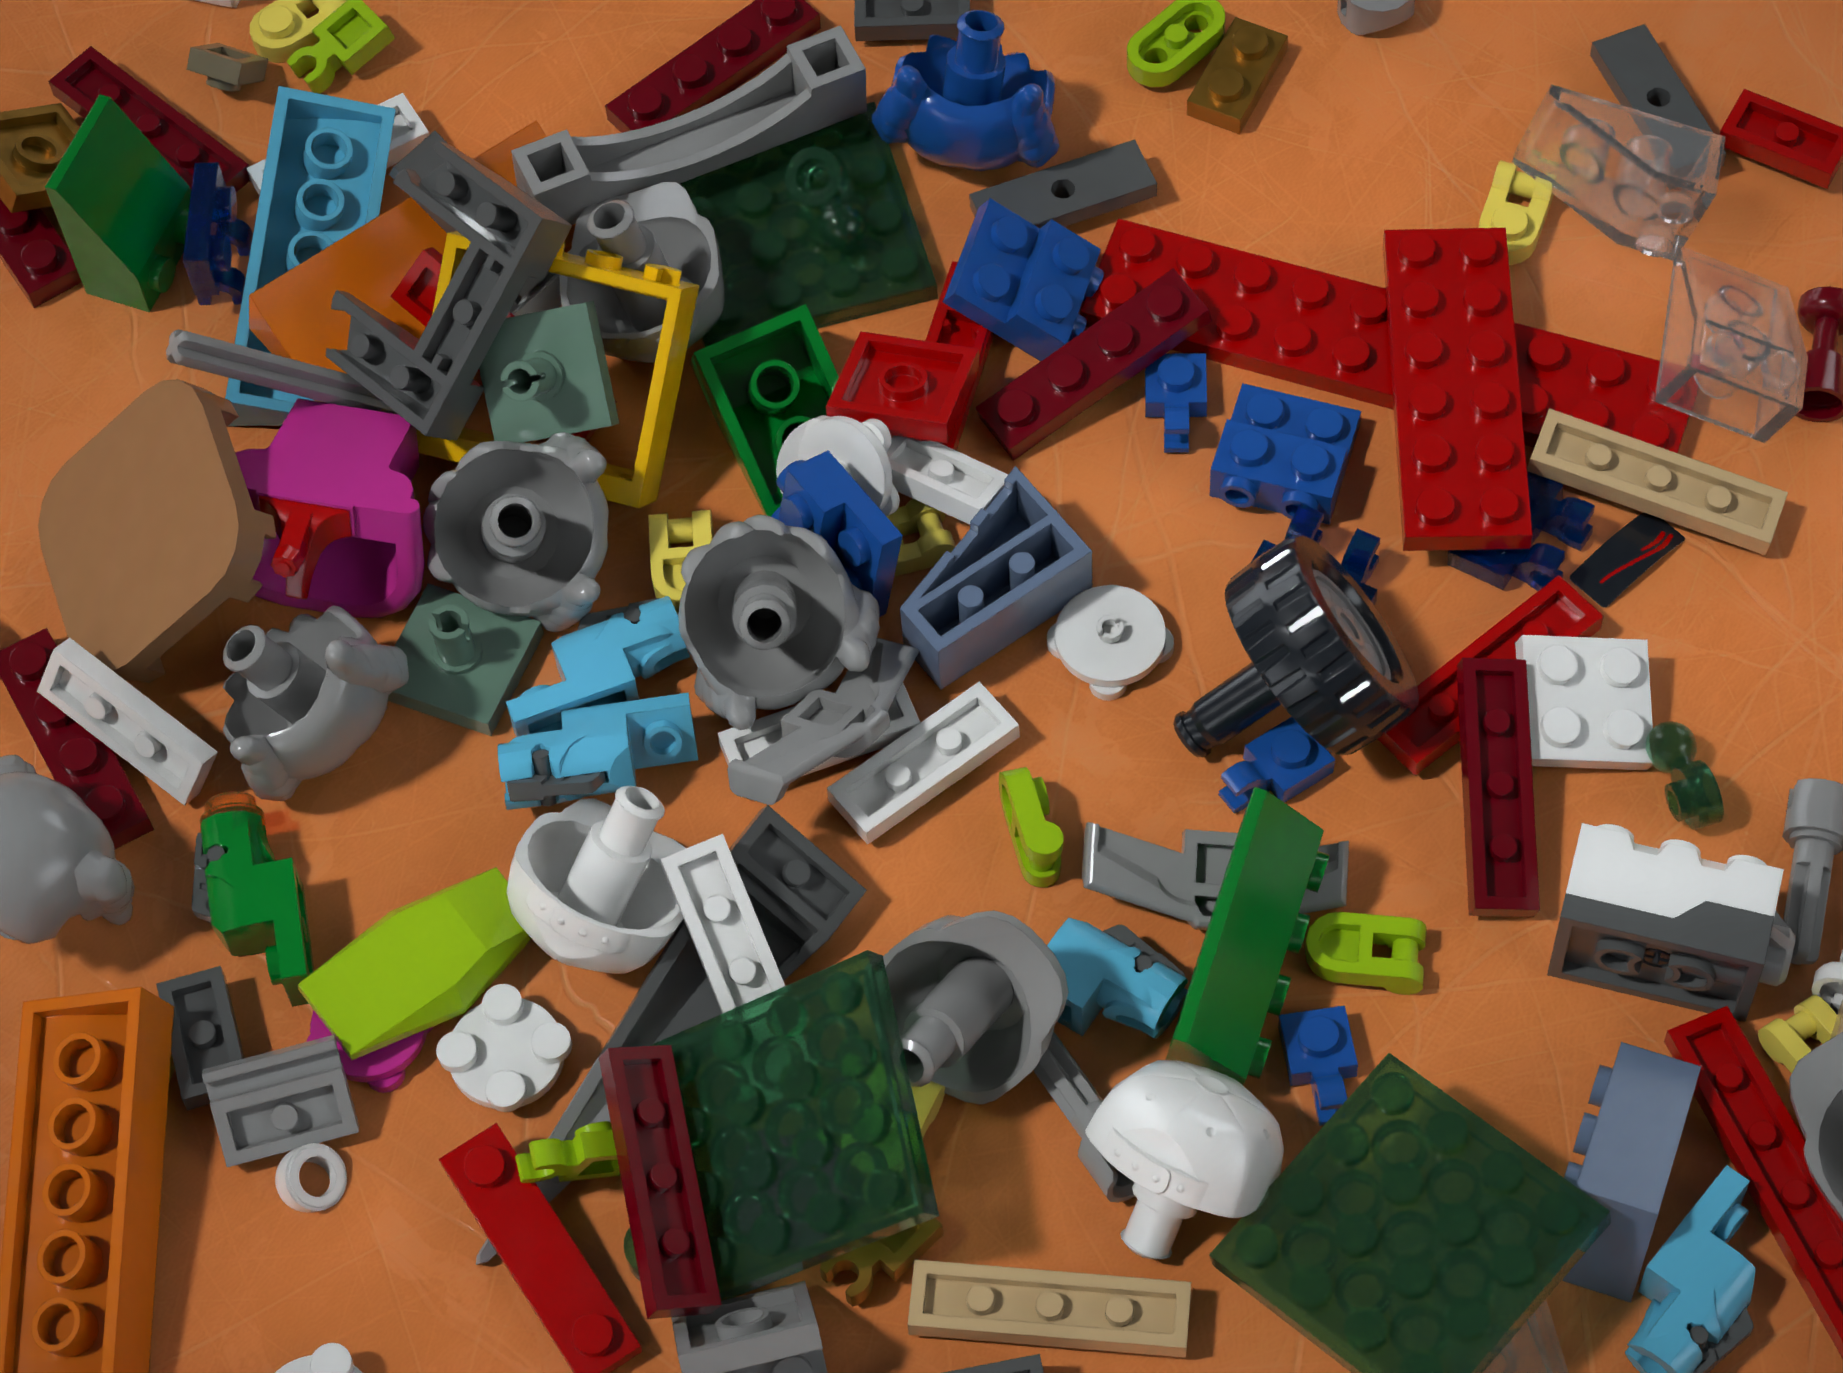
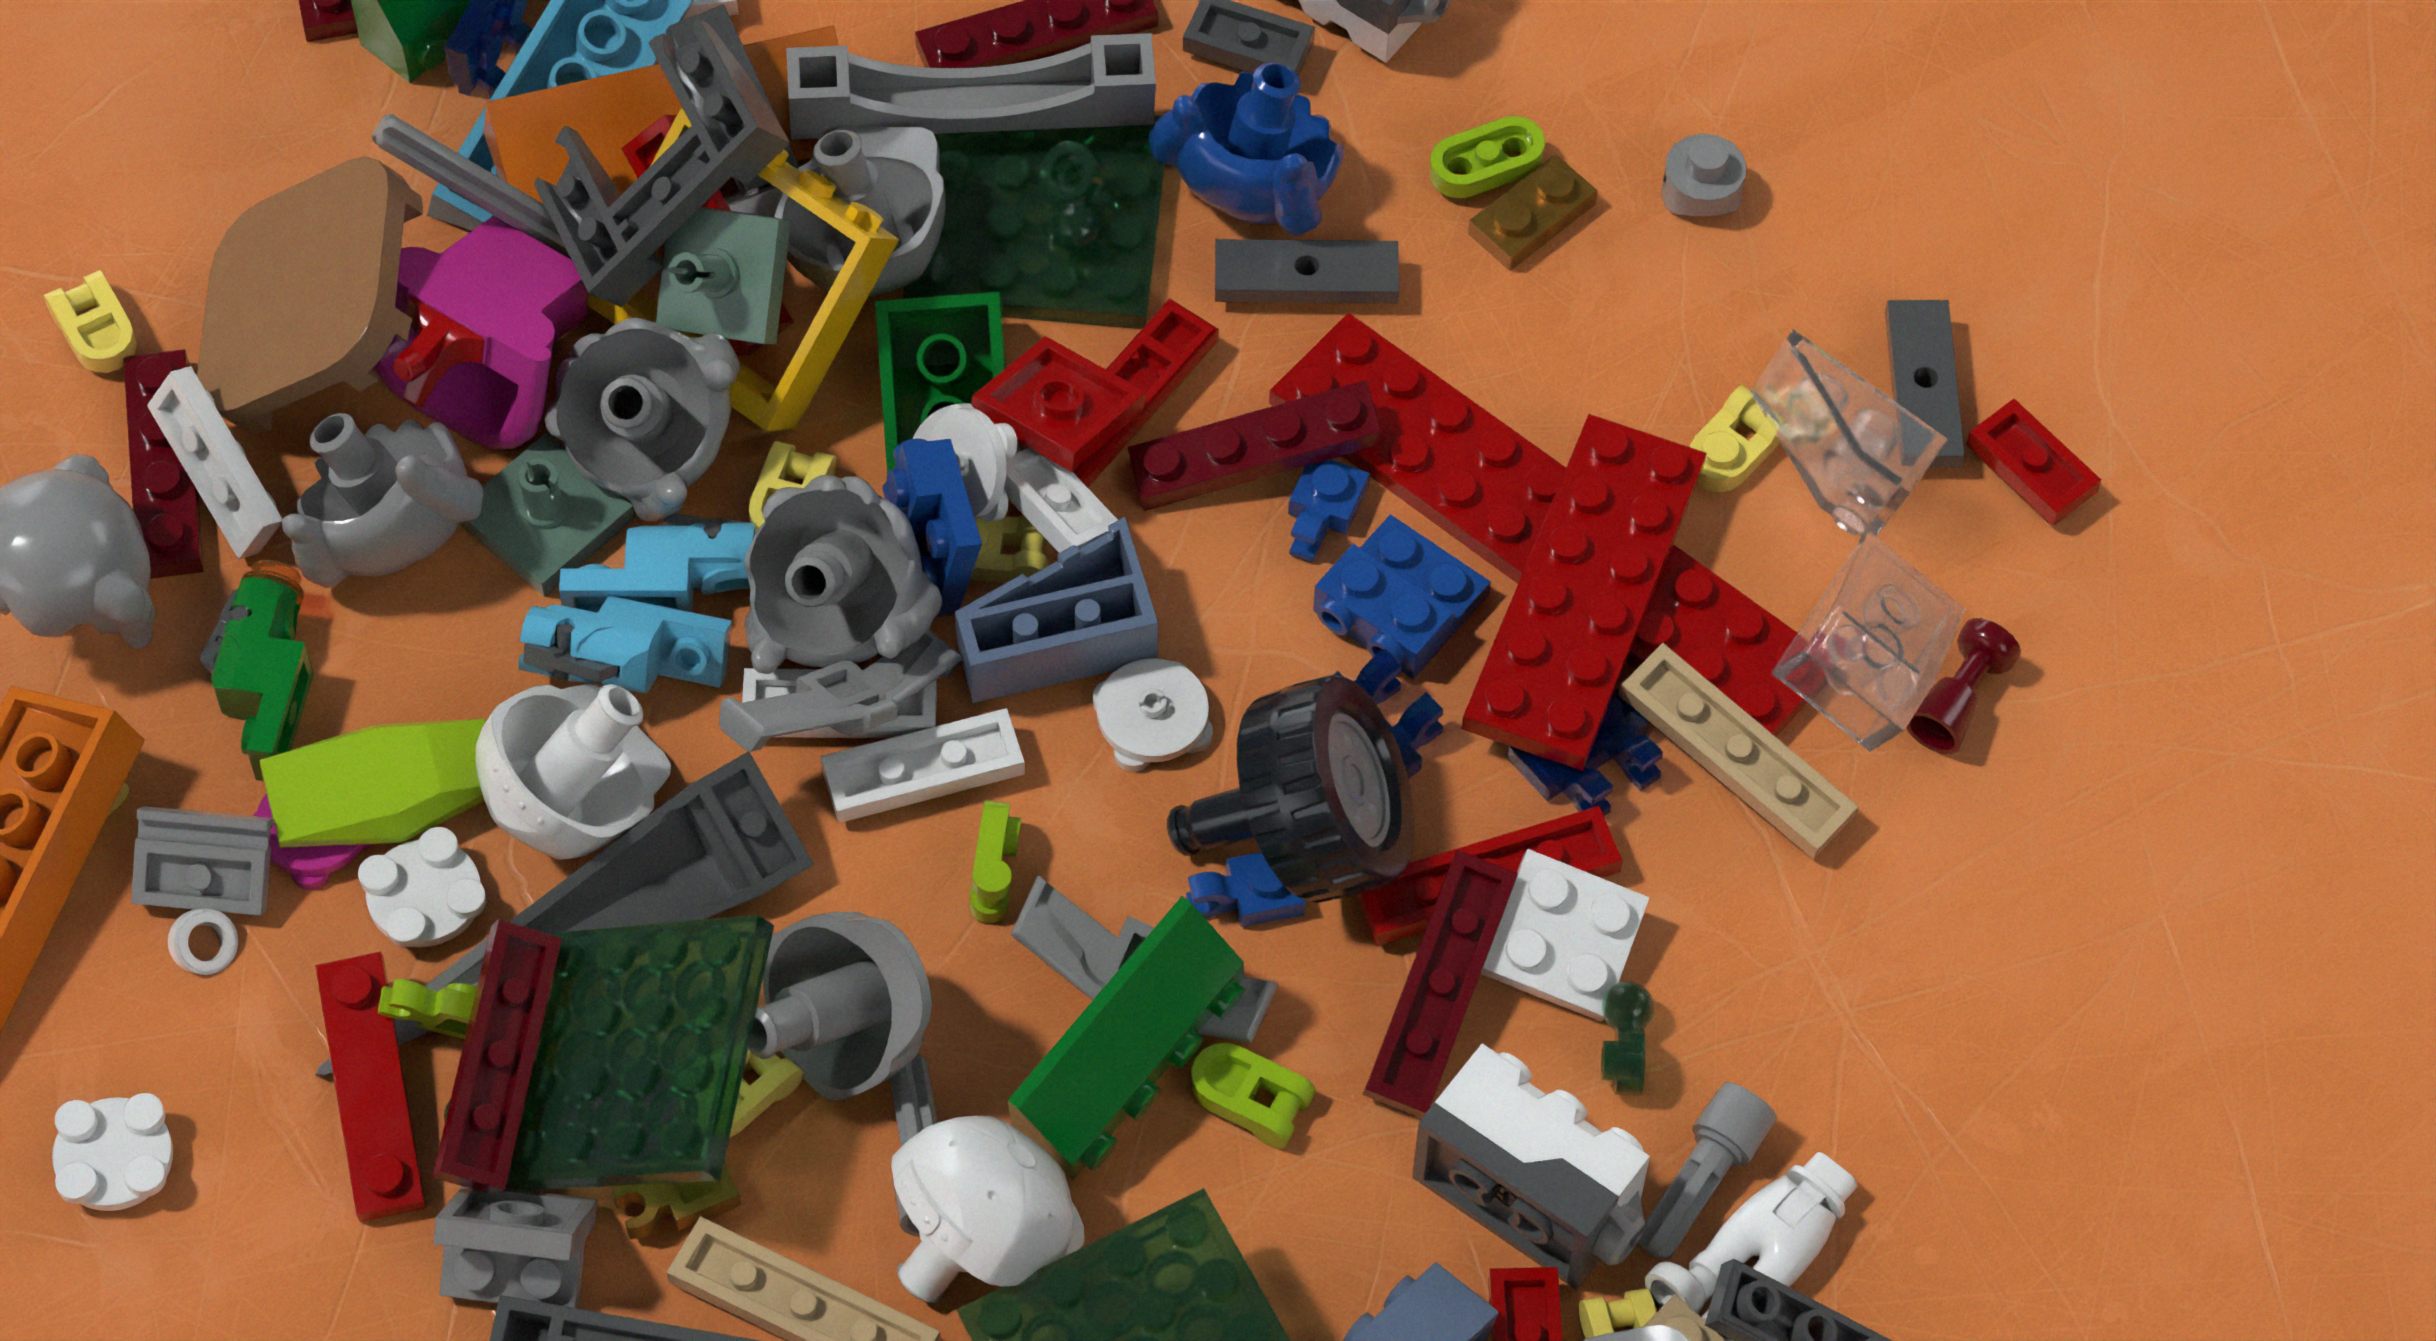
camera: 15 degrees right, 0 degrees up
(203, 1029) = (164, 768): dark grey plate -> none
(722, 923) = (658, 843): white plate -> none
(1024, 279) = (1225, 340): blue plate -> none
(1118, 974) = (987, 1020): medium azure plate -> none
(1319, 1053) = (1161, 1166): blue plate -> none
(1625, 558) = (1679, 813): black sticker -> none

